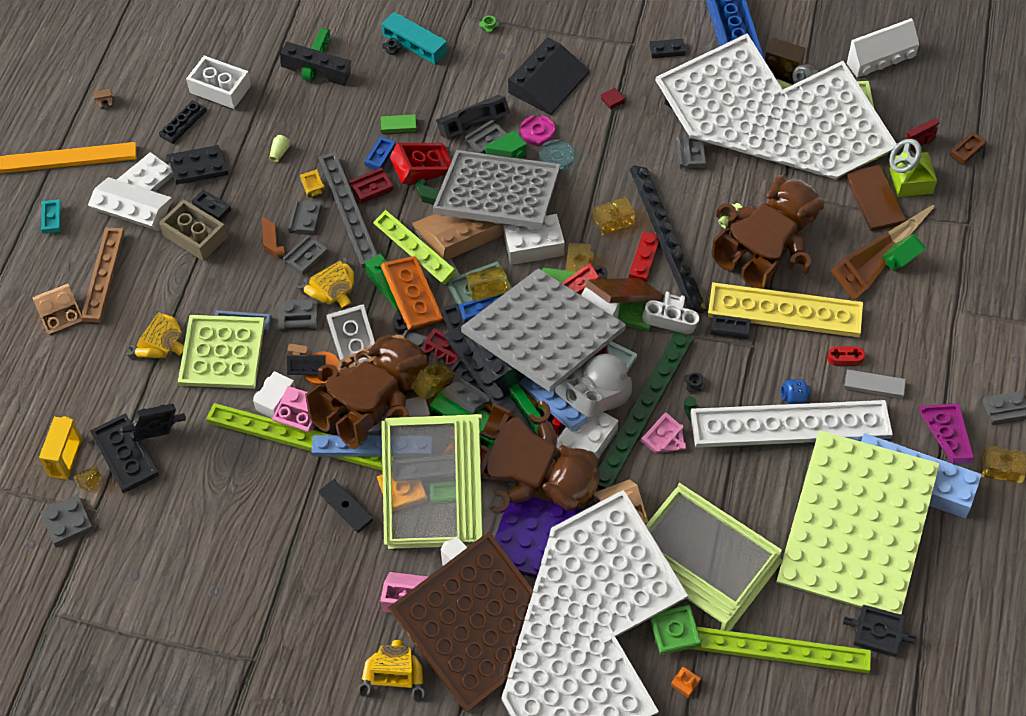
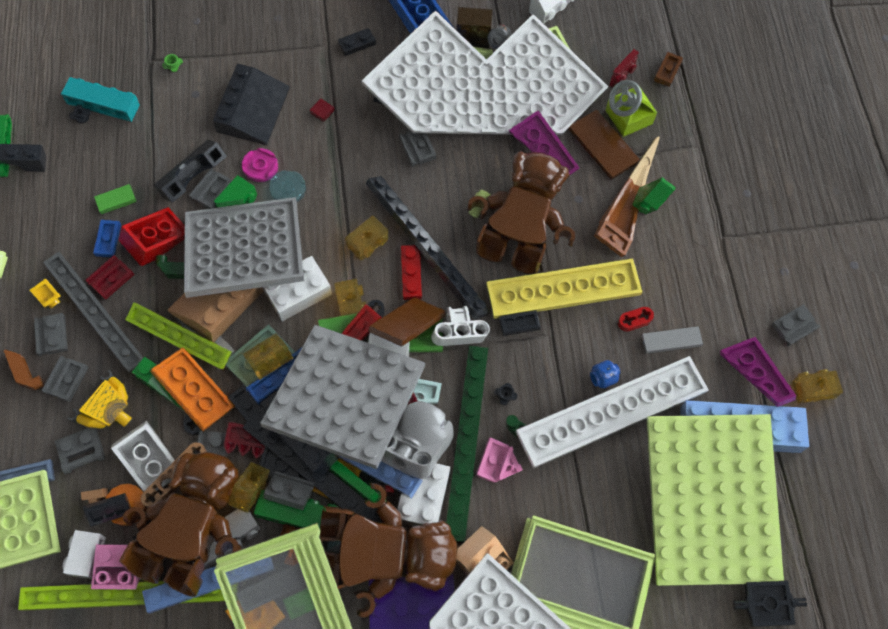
camera: 25 degrees left, 10 degrees up
(810, 168) = (539, 137): none -> magenta wing

